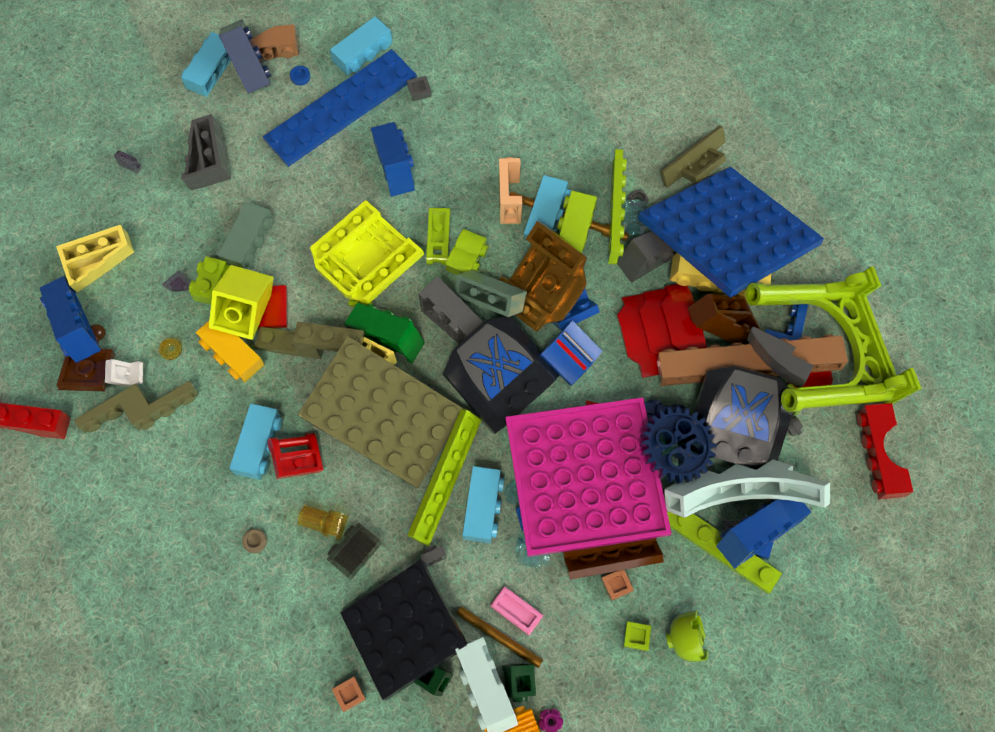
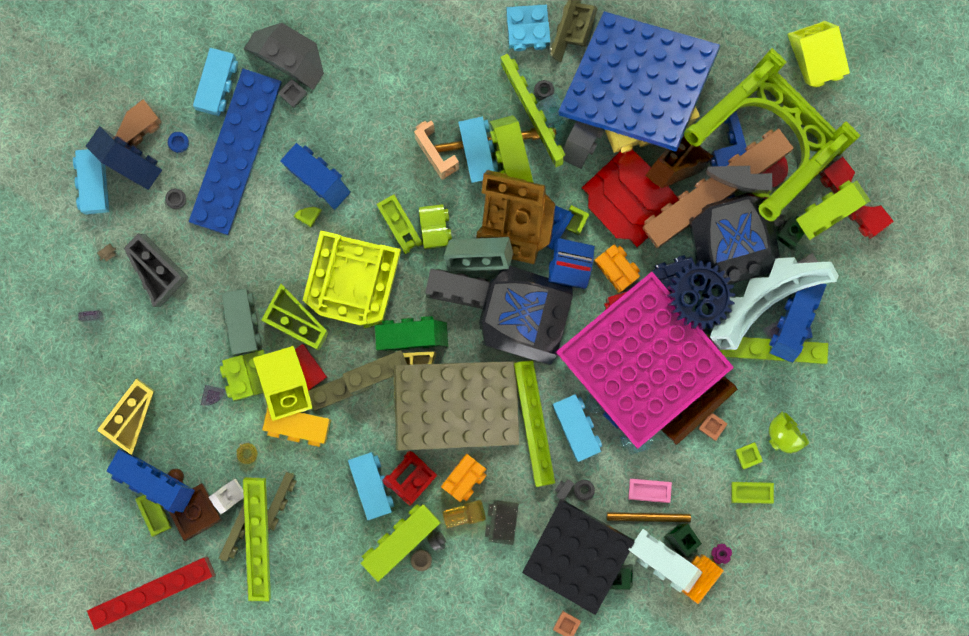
camera: 35 degrees left, 15 degrees up
(51, 355) = (153, 515): none -> lime tile
(117, 423) = (256, 539): none -> lime plate
(179, 122) = (107, 252): none -> dark tan plate
(243, 507) = (397, 545): none -> lime brick
(265, 114) = (175, 198): none -> dark grey plate
(280, 530) = (436, 540): none -> dark grey plate
(290, 255) = (294, 320): none -> lime wedge
(345, 487) = (463, 478): none -> light orange brick
(365, 188) = (308, 215): none -> lime tile
(437, 59) = (288, 53): none -> dark grey wedge
(452, 562) = (591, 490): none -> dark grey plate
(601, 321) = (578, 220): none -> lime panel
(611, 380) = (617, 268): none -> light orange brick
(619, 677) = (752, 492): none -> lime tile
(654, 144) = (528, 27): none -> medium azure plate
(797, 451) = (787, 237): none -> dark green brick
(856, 443) = (832, 209): none -> lime wedge
(917, 303) = (819, 53): none -> neon yellow slope

